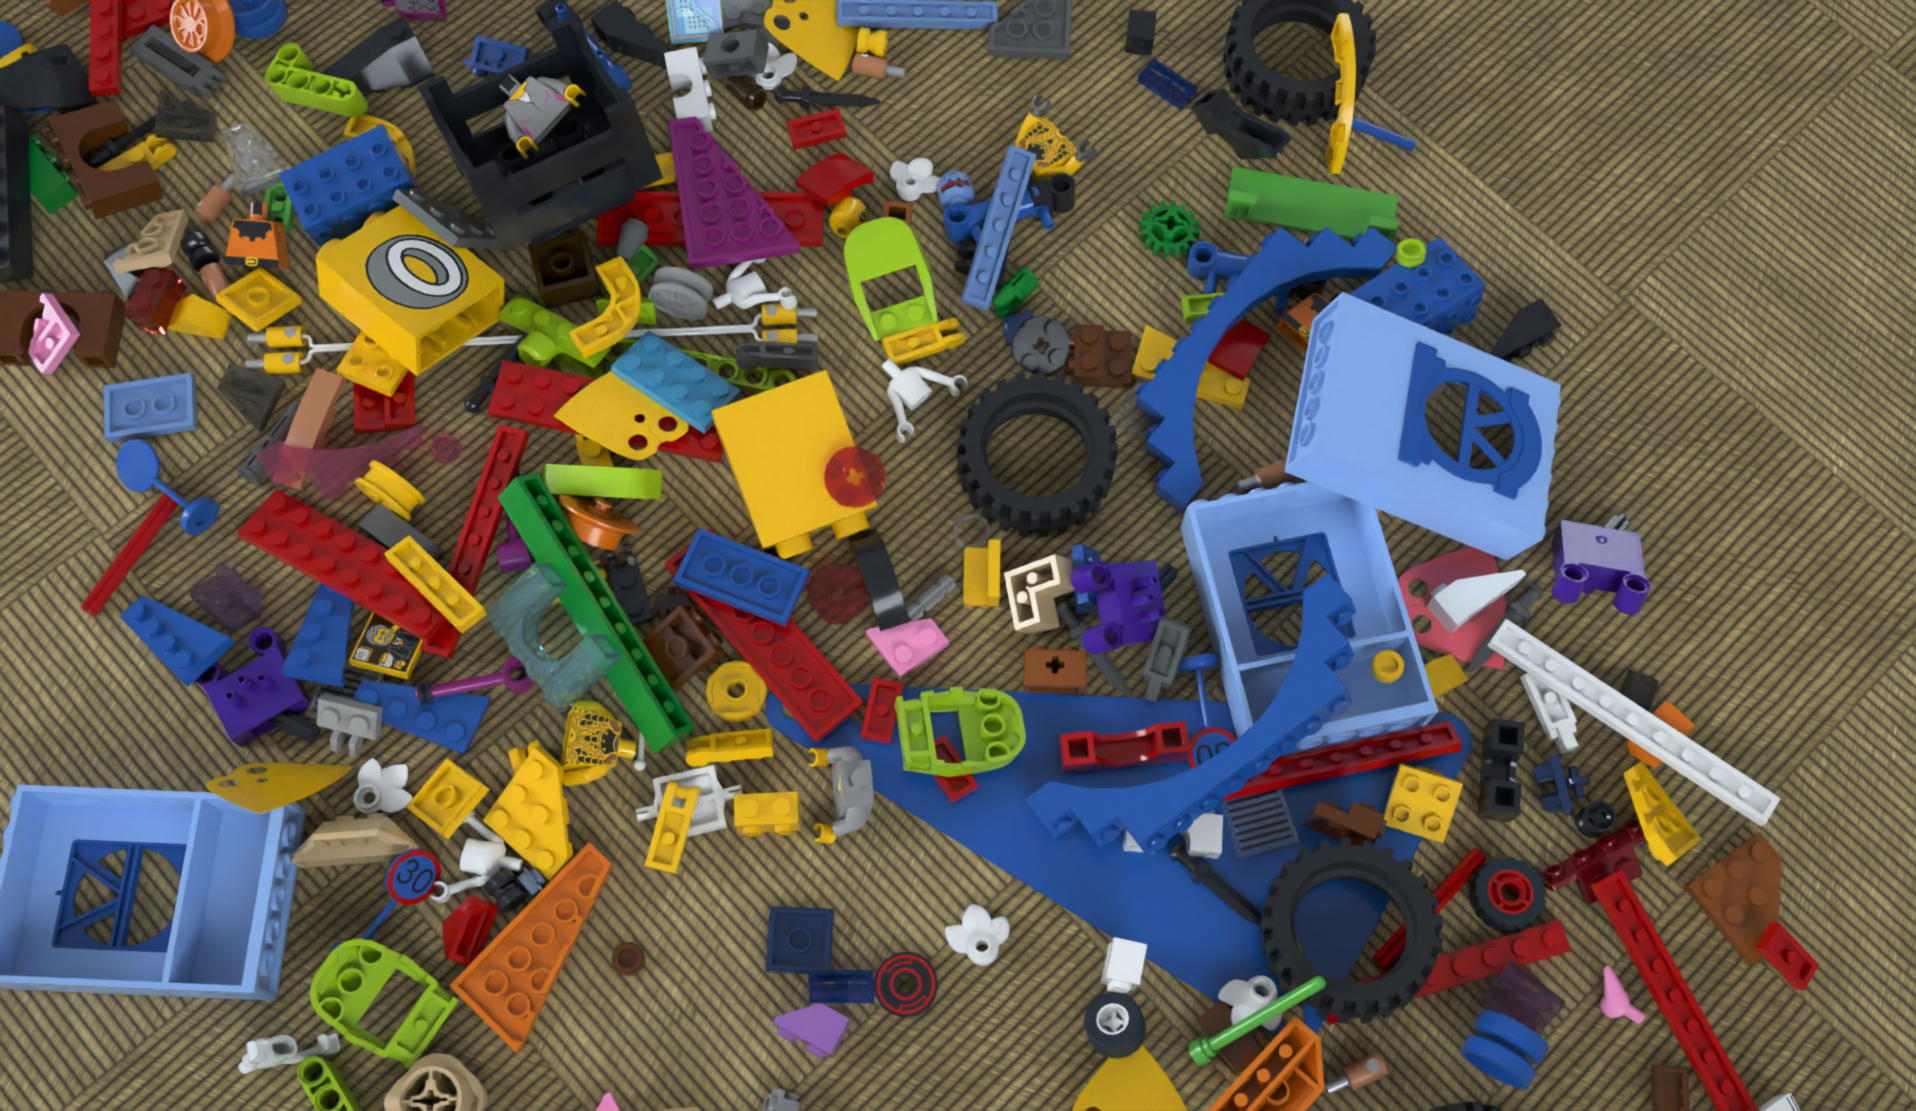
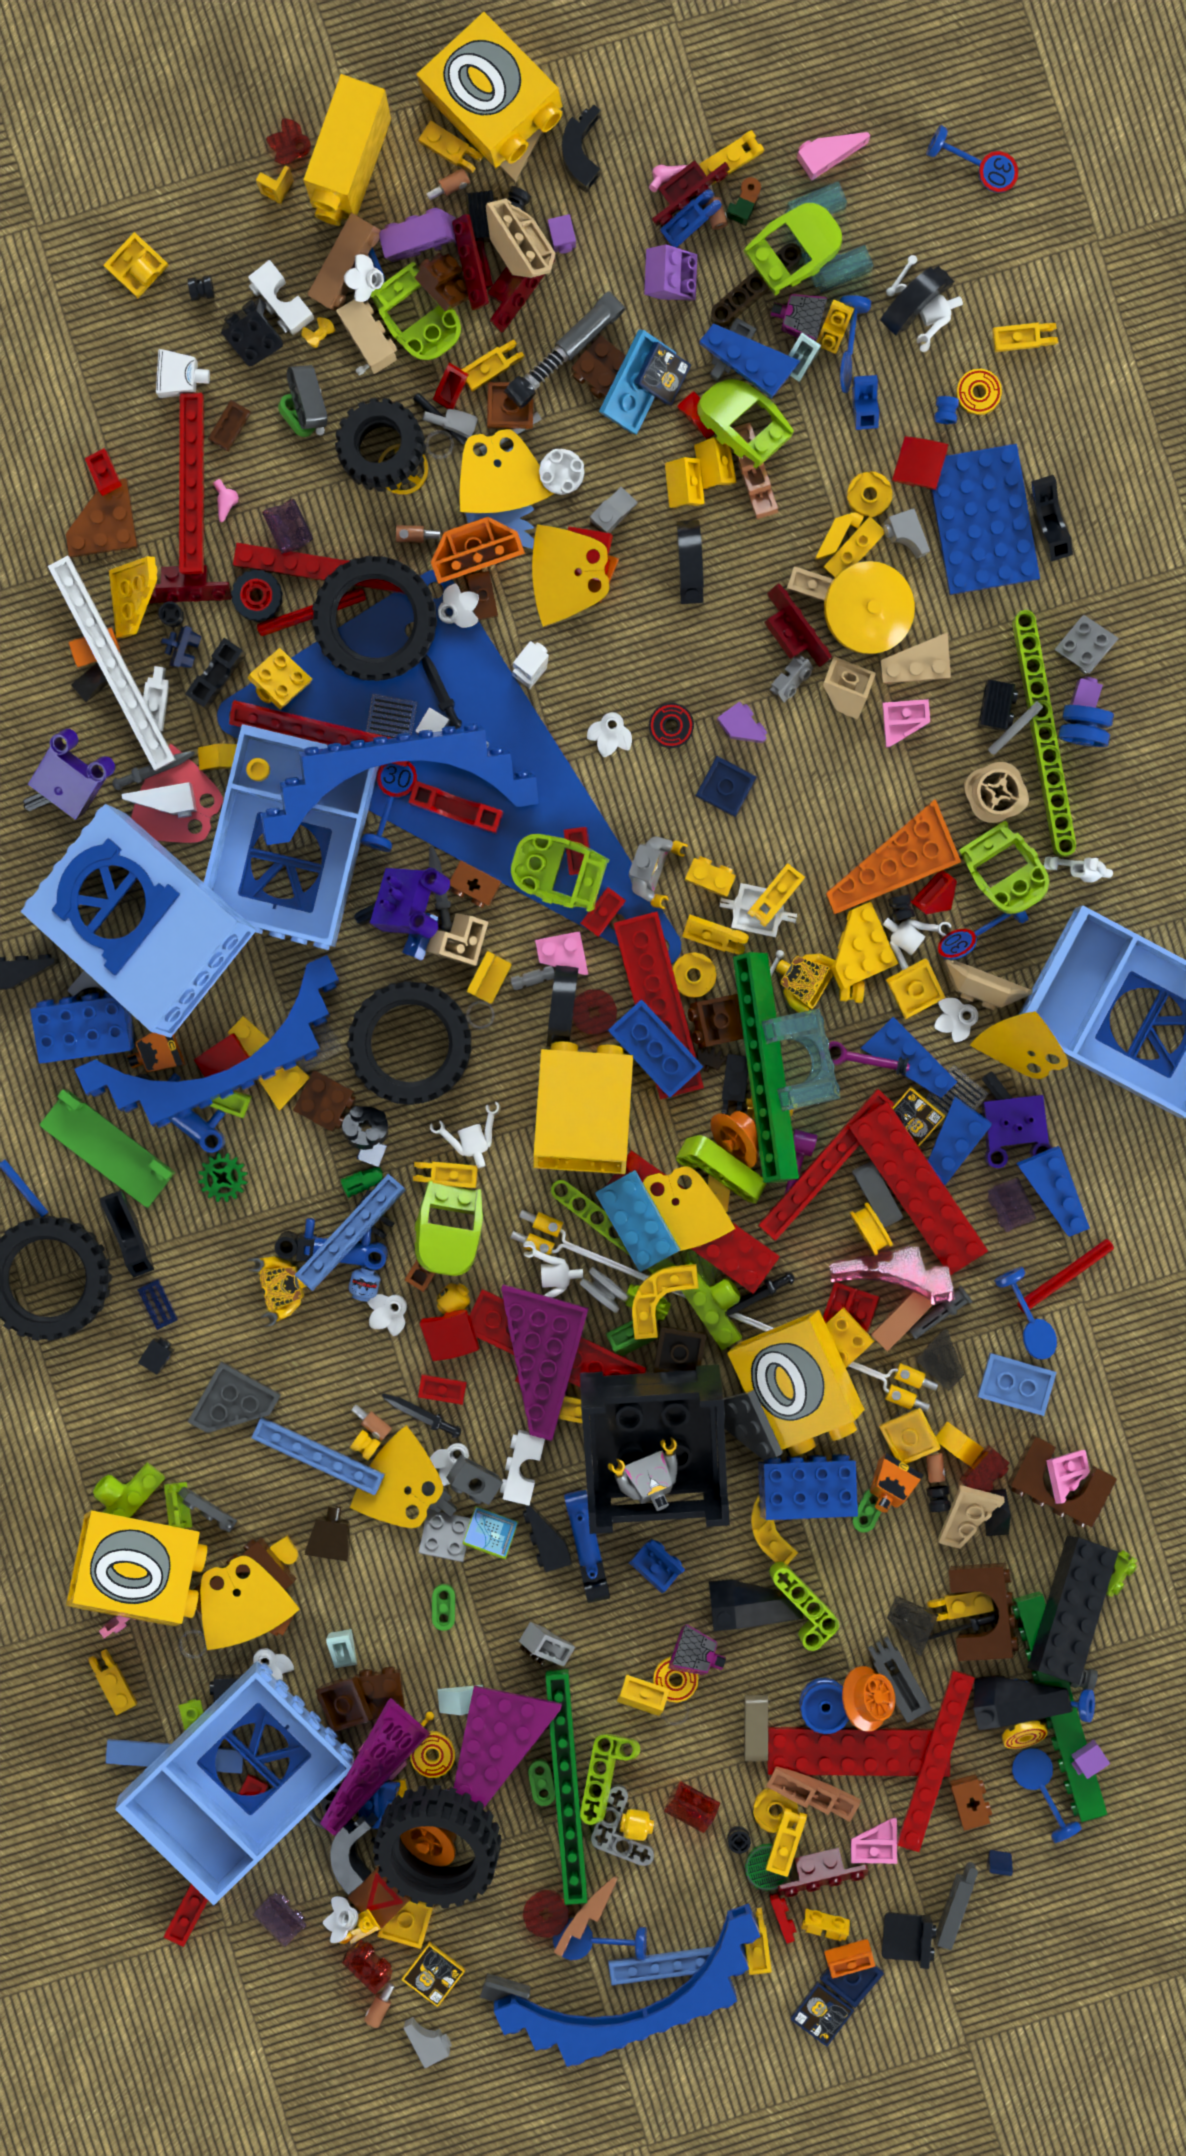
camera: 160 degrees left, 20 degrees up
(215, 201) = (912, 1540): nougat piece -> none
(252, 159) = (873, 1560): clear wing -> none
(348, 717) = (959, 1074): light grey hinge -> none
(435, 584) = (865, 1135): yellow plate -> none
(445, 449) = (820, 1251): clear pink plate -> none
(532, 881) = (882, 906): sand blue plate -> none
(628, 959) = (840, 827): reddish brown tile -> none
(631, 238) = (621, 1351): dark grey cone -> none
(747, 93) = (480, 1446): dark brown cone -> none
(777, 355) = (555, 1209): dark grey hinge -> none
(841, 990) = (714, 734): clear blue tile -> none
(862, 462) = (549, 1084): clear red plate -> none
(1106, 1016) = (560, 637): black wheel -> none
(1165, 656) = (397, 854): dark grey hinge -> none
(1204, 1049) = (503, 593): bright green piece -> none
(1267, 477) = (256, 953): nougat piece -> none
(1344, 54) = (56, 1191): yellow tile -> none
(1357, 822) = (333, 684): reddish brown plate -> none
(1411, 253) = (68, 1059): lime tile -> none
(1504, 1049) = (318, 502): blue wheel -> none

